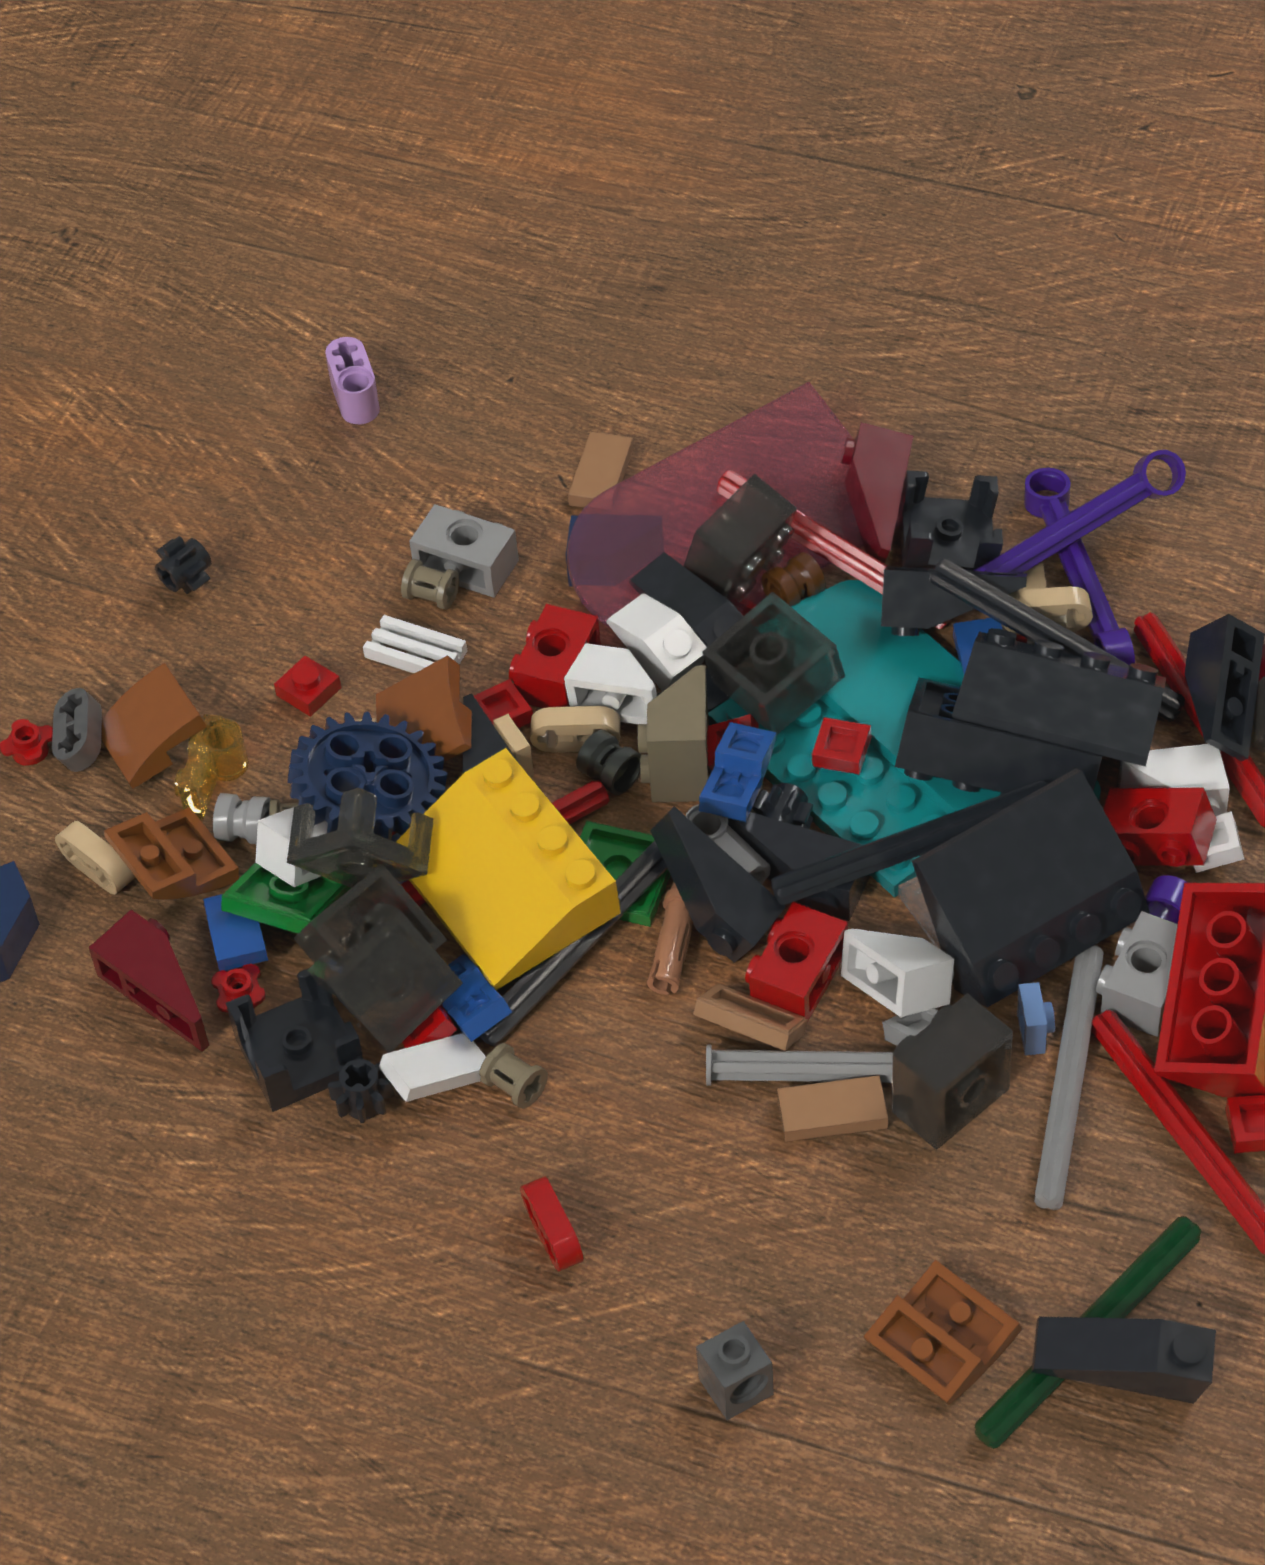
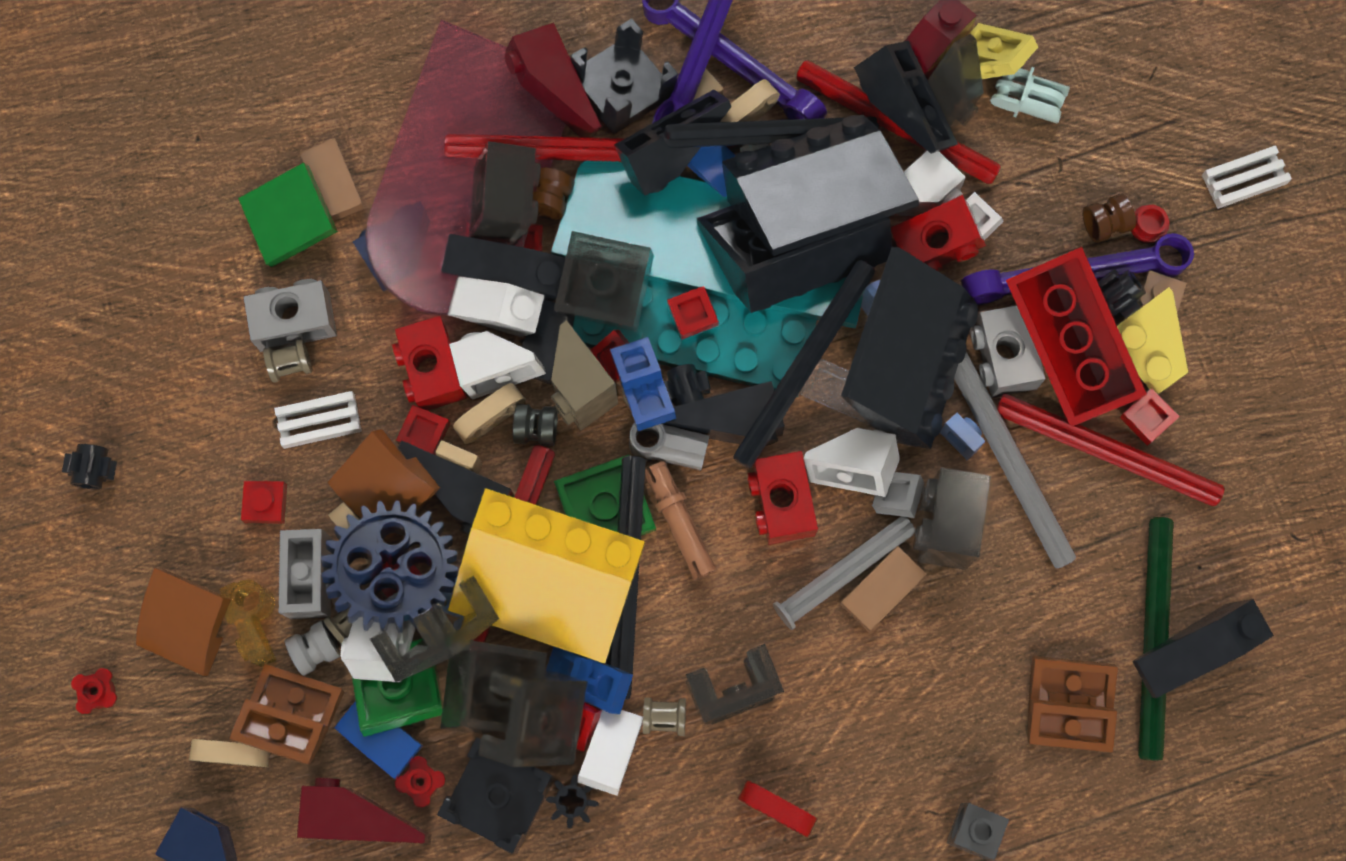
camera: 40 degrees left, 25 degrees up
(77, 729) = (125, 658): flat silver beam -> none
(268, 754) = (300, 576): none -> light grey brick
(352, 380) = (88, 219): lavender beam -> none
(534, 473) = (287, 215): none -> green tile
(594, 1091) = (738, 698): none -> clear smoke panel
(717, 891) = (698, 487): black slope -> none
(750, 1017) = (783, 560): medium nougat tile -> none

